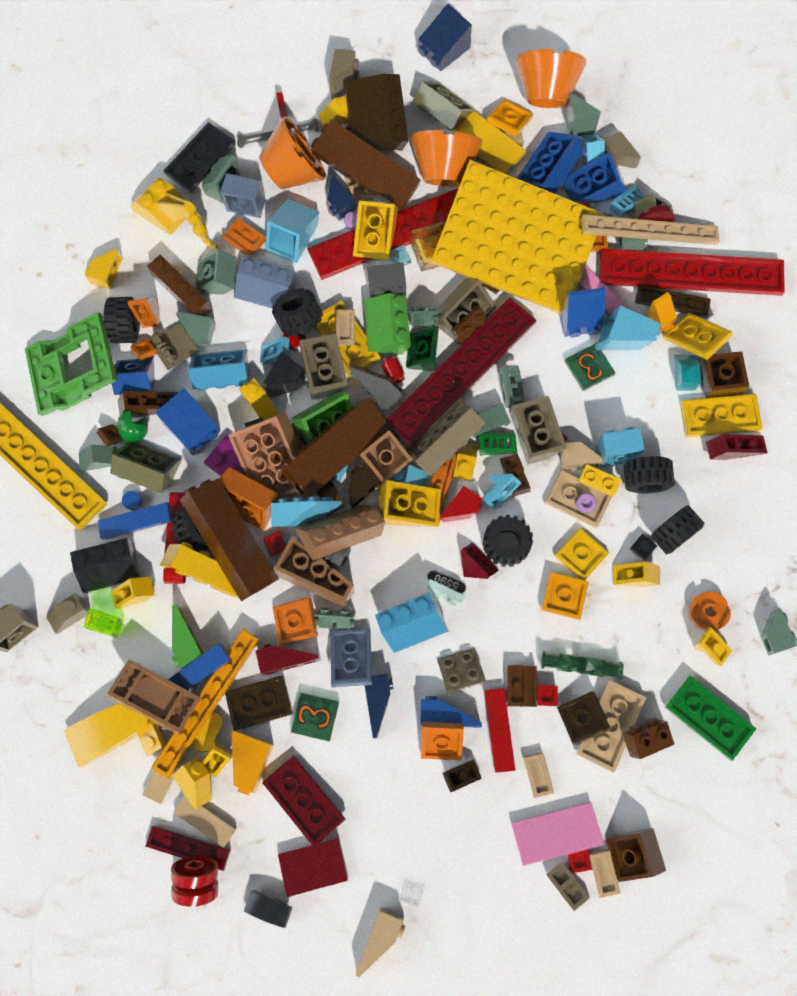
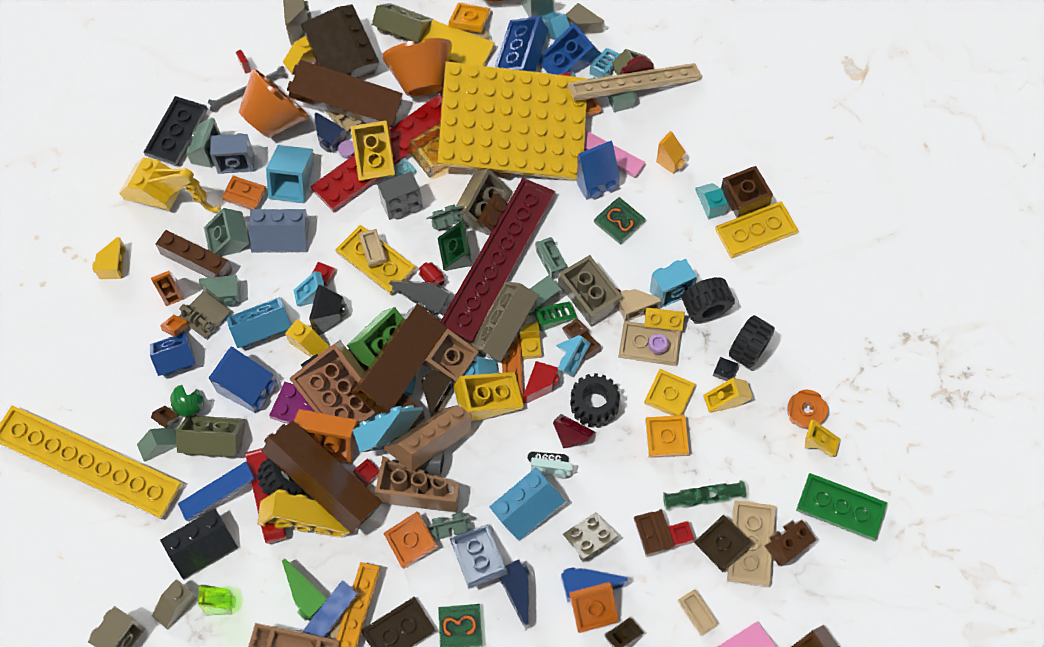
camera: 20 degrees left, 10 degrees down
(48, 371) = (82, 372): bright green piece -> none
(120, 321) = (145, 302): black tyre -> none
(132, 500) = (206, 474): blue tile -> none
(132, 592) = (235, 562): yellow slope -> none
(142, 402) = (190, 375): reddish brown slope -> none
(277, 659) = (408, 579): dark red slope -> none
(297, 312) = (320, 246): black tyre -> none
(323, 366) = (361, 289): dark tan slope -> none
(387, 324) = (413, 233): bright green slope -> none
(499, 730) = (646, 582): red tile -> none
(627, 331) = (644, 176): medium azure slope -> none
(682, 302) = (688, 139): dark brown tile -> none
(692, 272) = (685, 109): red plate -> none
(698, 335) = (711, 163): yellow tile -> none
(735, 446) = (779, 252): dark red slope -> none
(777, 634) = (876, 410): sand green slope -> none

